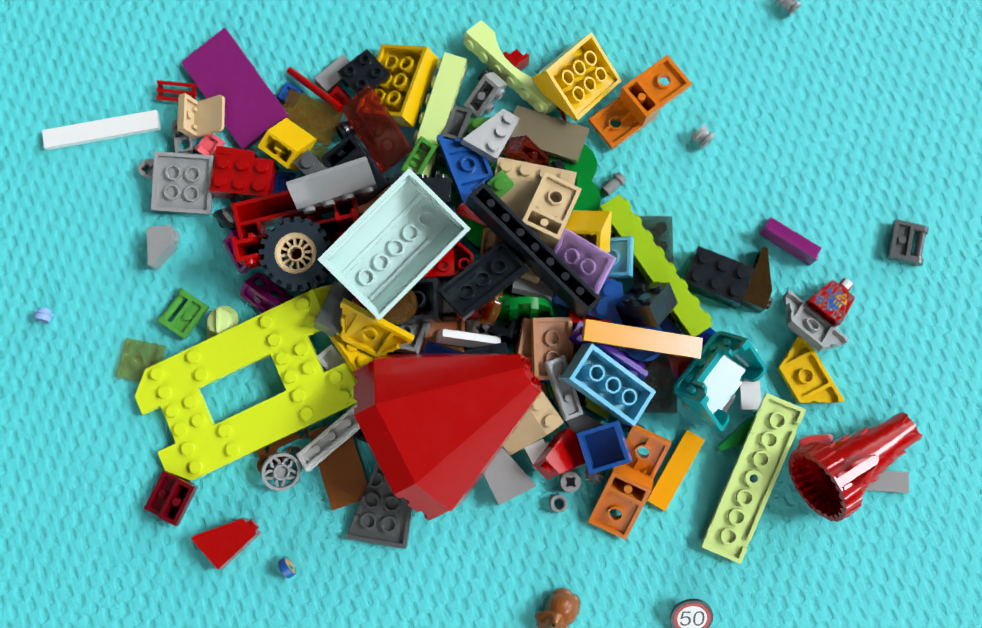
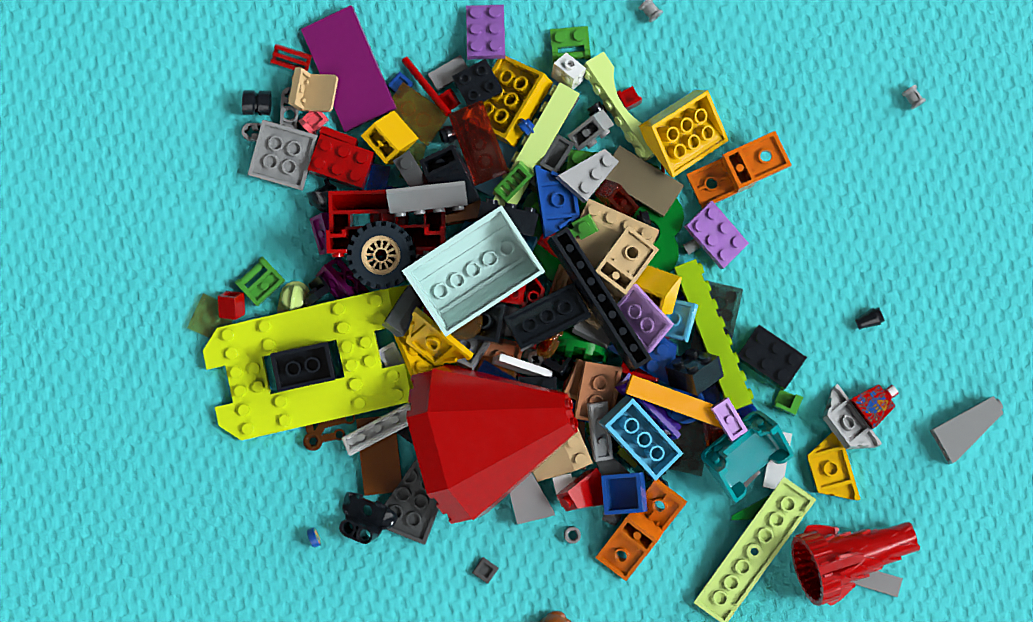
camera: 15 degrees right, 5 degrees up
(43, 315) = (129, 254): light blue plate -> none
(101, 130) = (210, 81): white tile -> none
(147, 139) = (256, 102): none -> black wheel
(156, 343) = (231, 305): none -> red panel
(161, 244) = (251, 210): light grey slope -> none
(171, 498) = (221, 452): dark red brick -> none
(226, 541) = (264, 502): red slope -> none
(239, 388) = (303, 366): none -> black brick
(243, 310) = (319, 289): none -> black bracket
(280, 471) = (324, 449): light grey wheel -> none
(353, 532) = (380, 519): none -> black piece
(362, 27) = (485, 32): none -> medium lavender plate
(420, 101) = (526, 126): none -> blue plate
(444, 19) = (570, 38): none -> bright green plate
(451, 43) = (568, 71): none -> white head
(475, 561) = (485, 570): none -> dark grey tile
(566, 482) = (587, 518): light grey wheel -> none
(632, 169) = (716, 234): none -> medium lavender plate
(675, 470) = (687, 528): light orange tile -> none
(695, 345) = (729, 419): none -> lavender plate
(703, 136) = (793, 216): light grey wheel -> none
(745, 319) = (787, 402): none -> bright green panel
(760, 286) = (808, 375): dark brown slope -> none
(790, 241) = (851, 336): magenta panel -> none
(804, 219) = (869, 319): none -> black cone
(901, 242) = (958, 360): dark grey plate -> none
(927, 308) = (963, 430): none -> light grey slope

